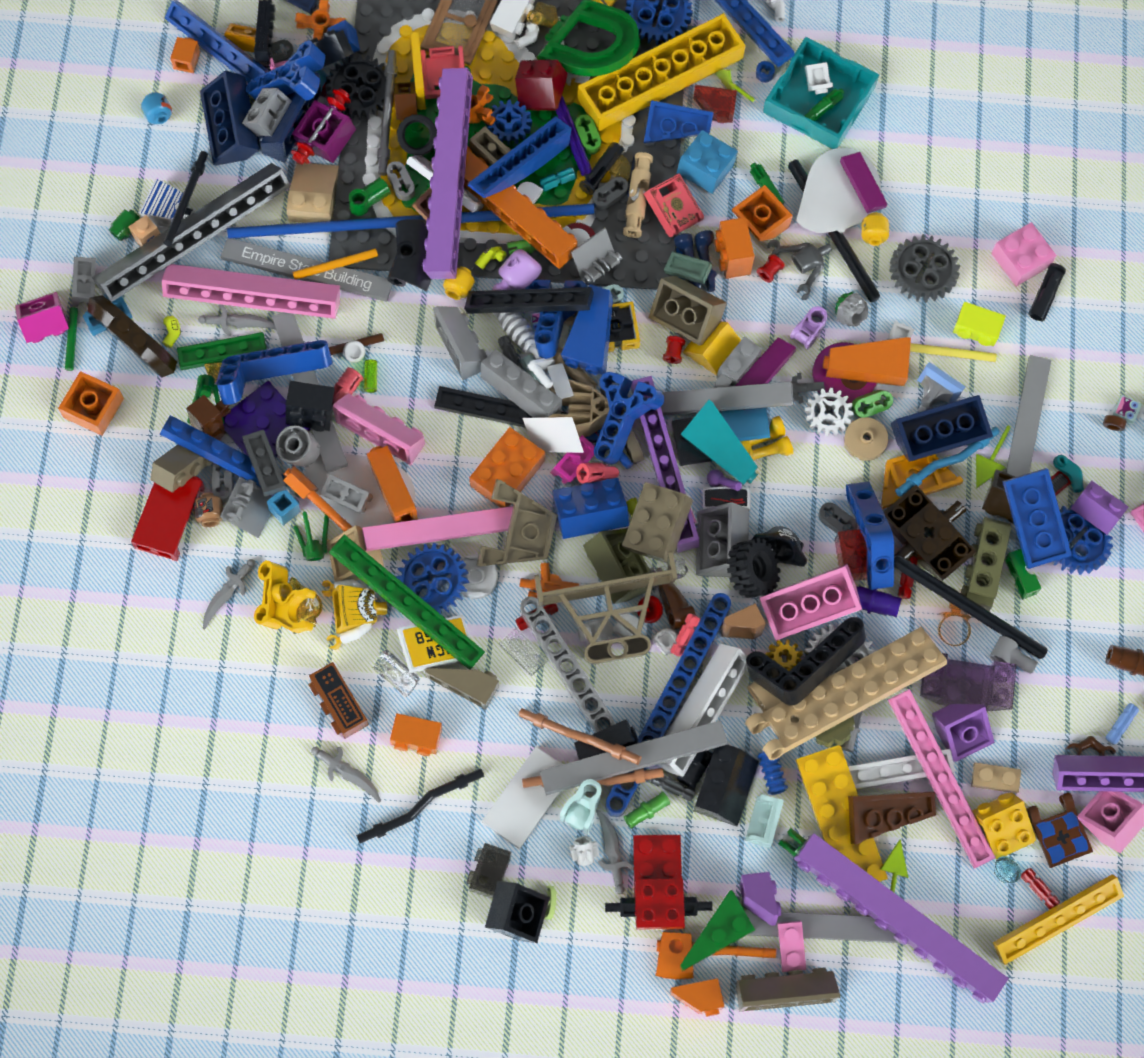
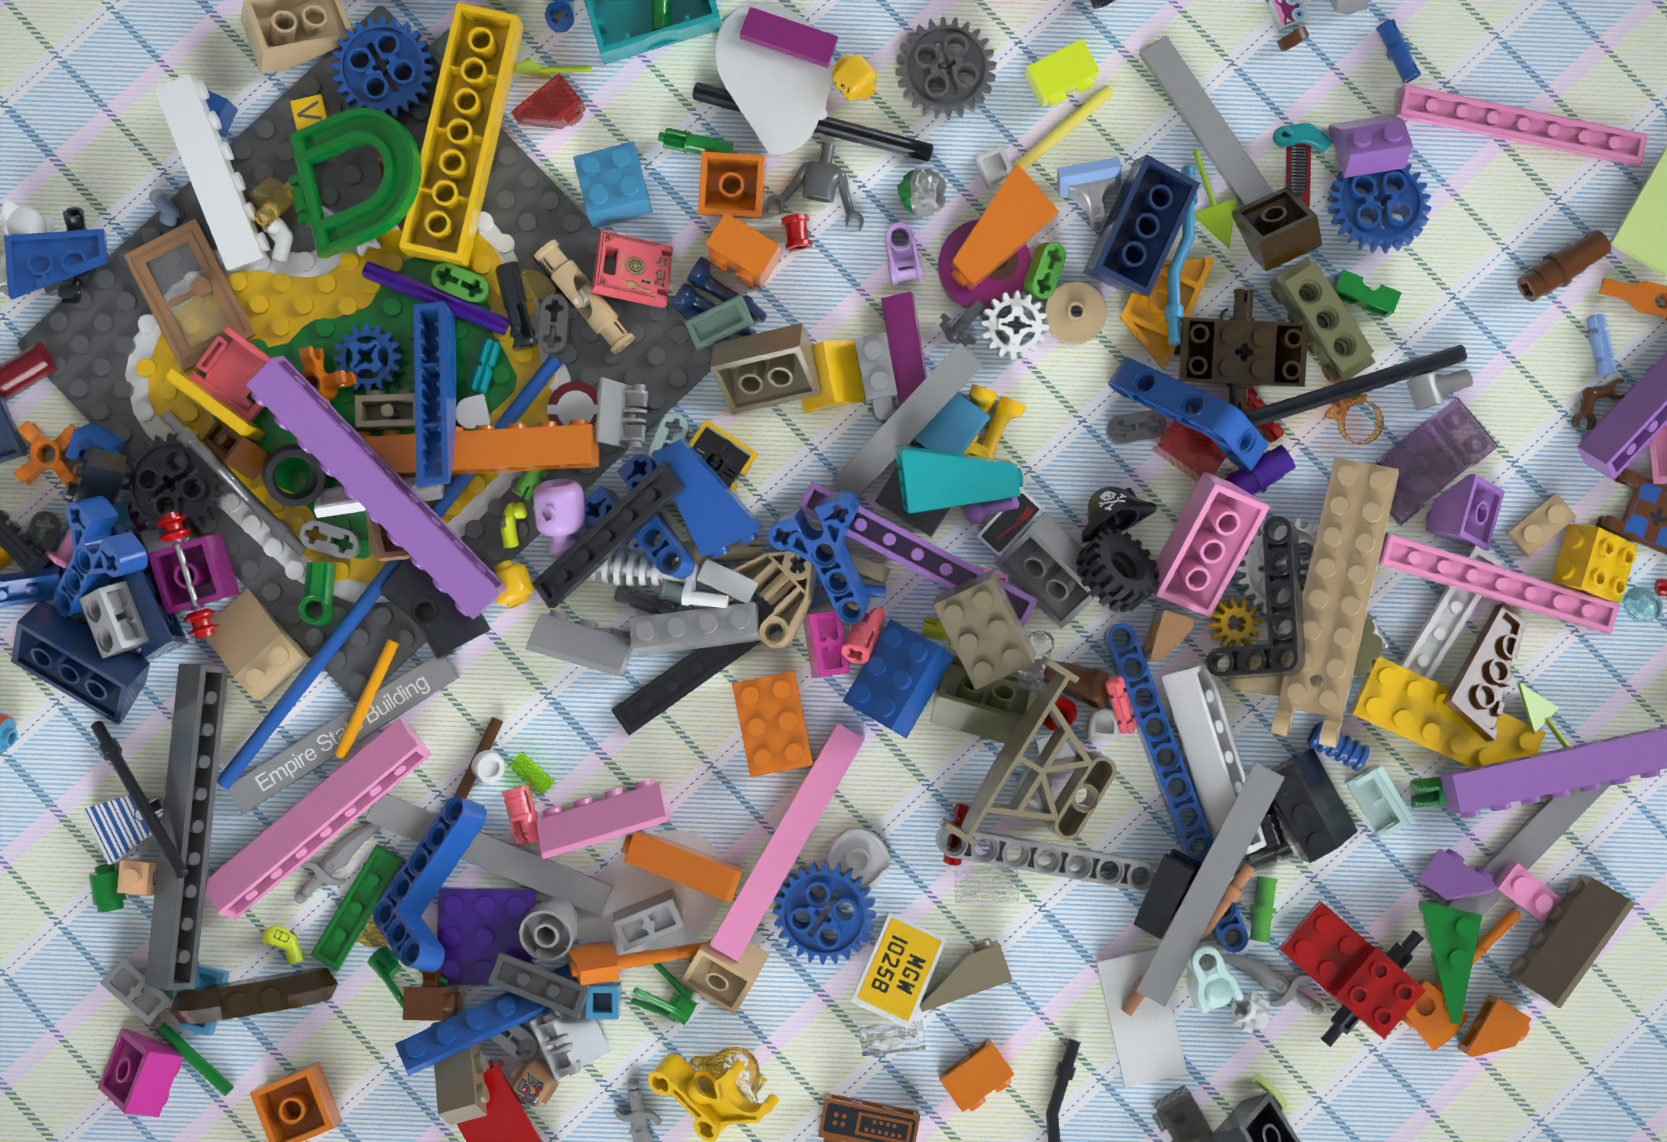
camera: 50 degrees left, 15 degrees up
(309, 405) = (517, 880): black brick -> none
(353, 610) = (785, 1025): torso -> none
(406, 602) = (830, 967): green tile -> none
(528, 530) = (865, 768): dark tan wing -> none
(540, 84) = (356, 284): dark red slope -> none
(548, 581) = (937, 788): orange piece -> none
(554, 434) = (784, 646): white sticker -> none
(617, 751) = (1193, 897): nougat bar -> none
(674, 349) = (796, 422): red bush -> none
(675, 122) = (533, 175): blue wing -> none
(1037, 518) = (1336, 229): blue plate -> none

